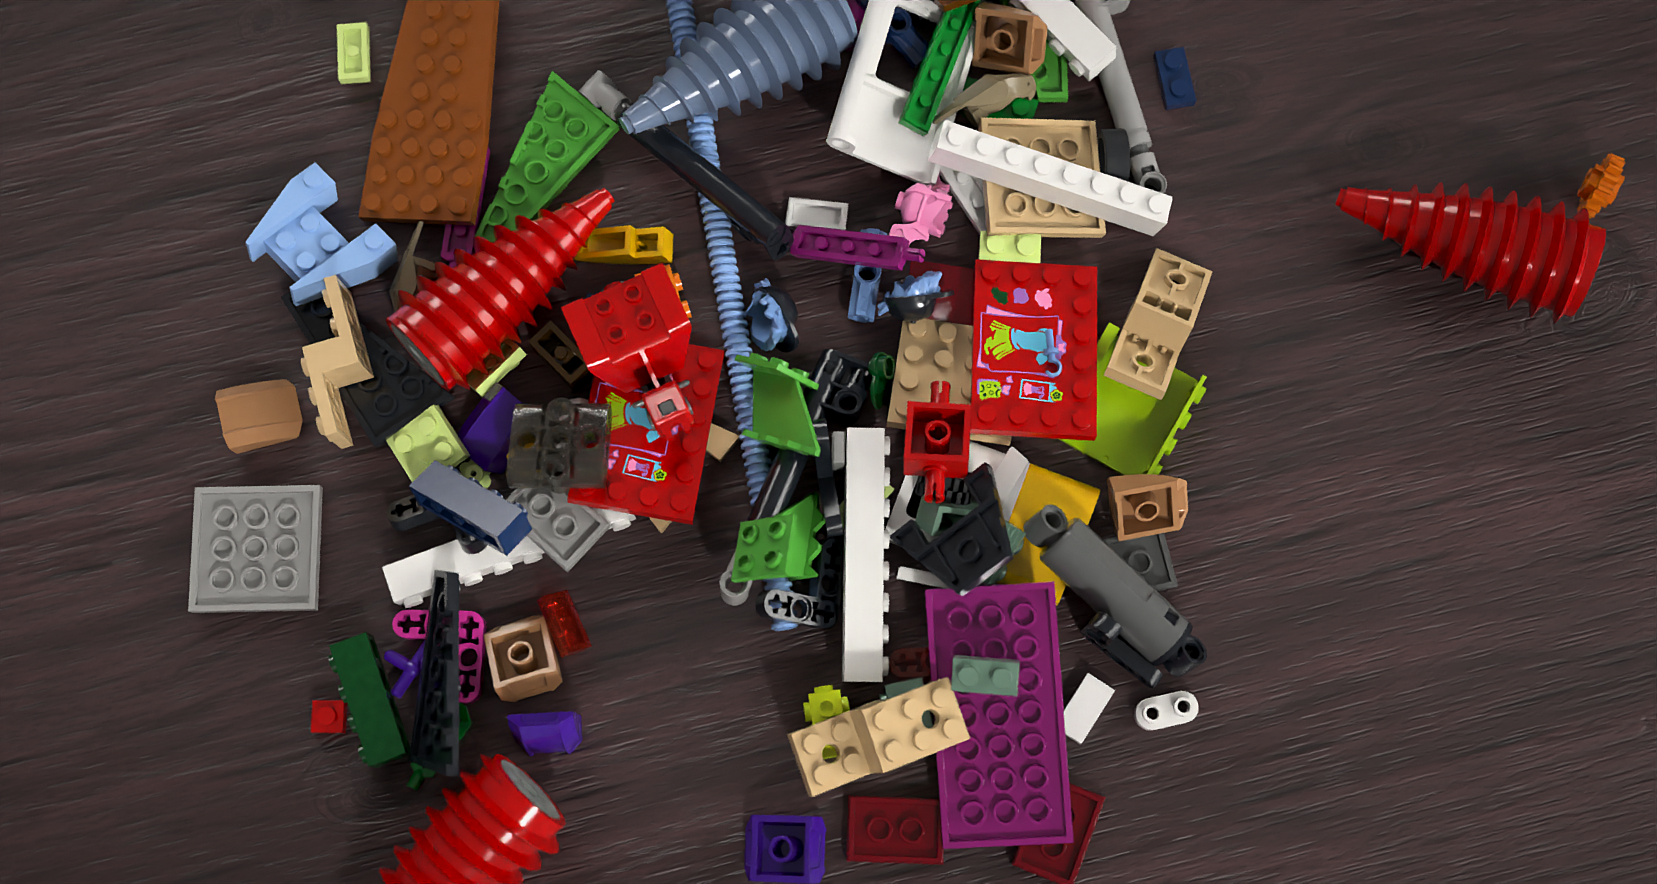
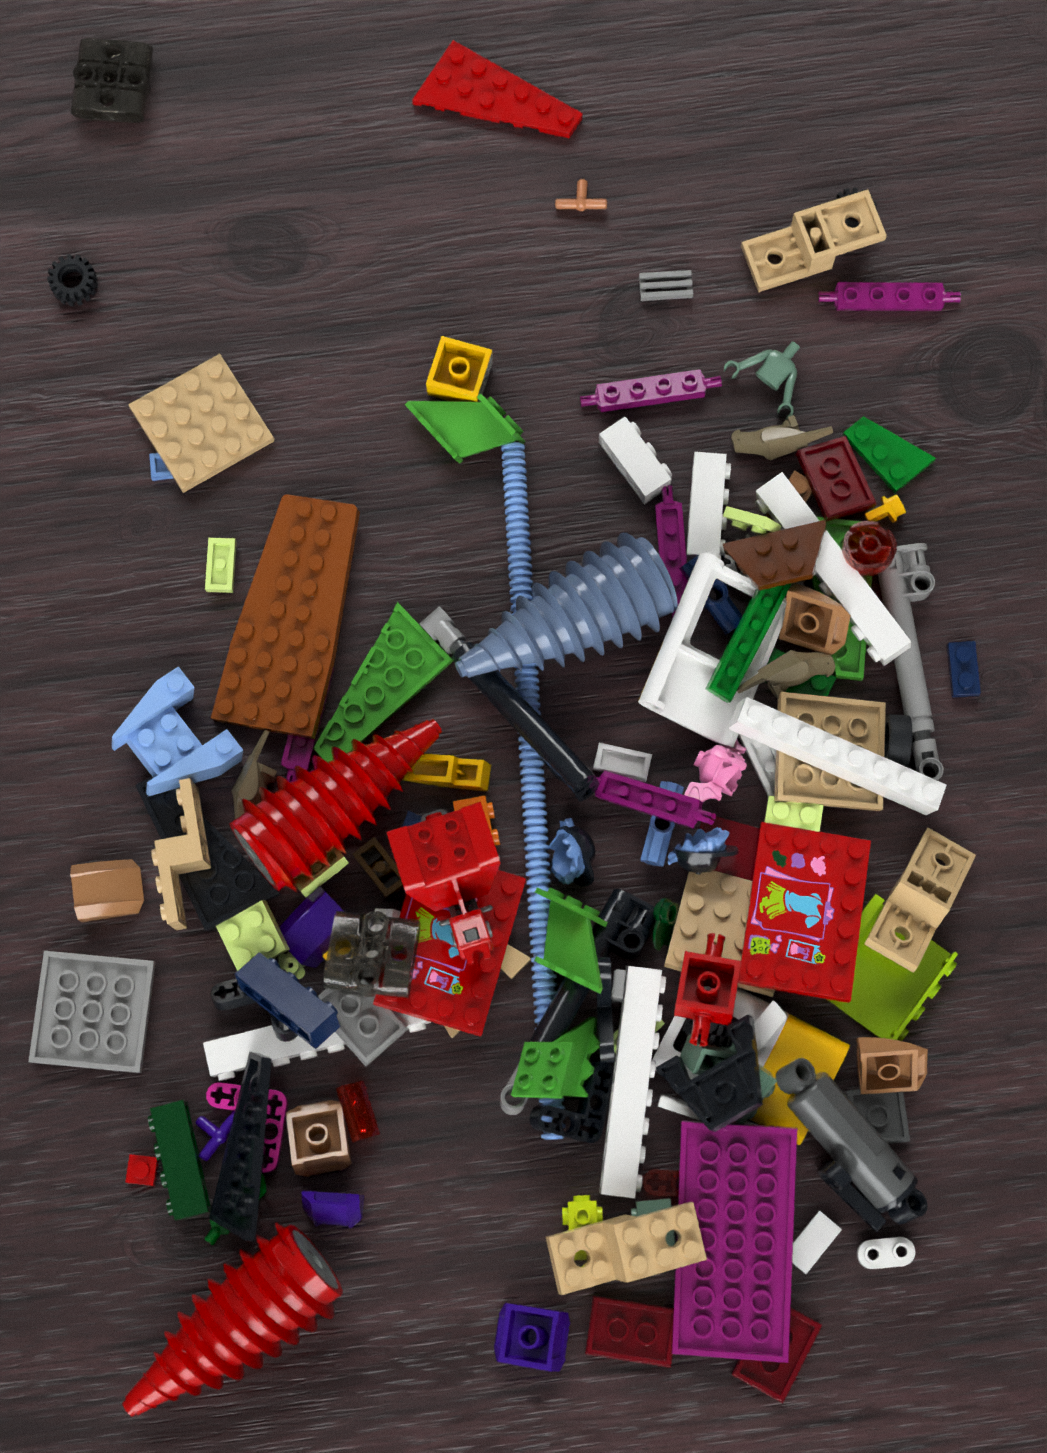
camera: 10 degrees right, 0 degrees up
(985, 675) = (726, 1205): sand green brick -> none
(1050, 351) = (818, 918): medium blue hand -> none

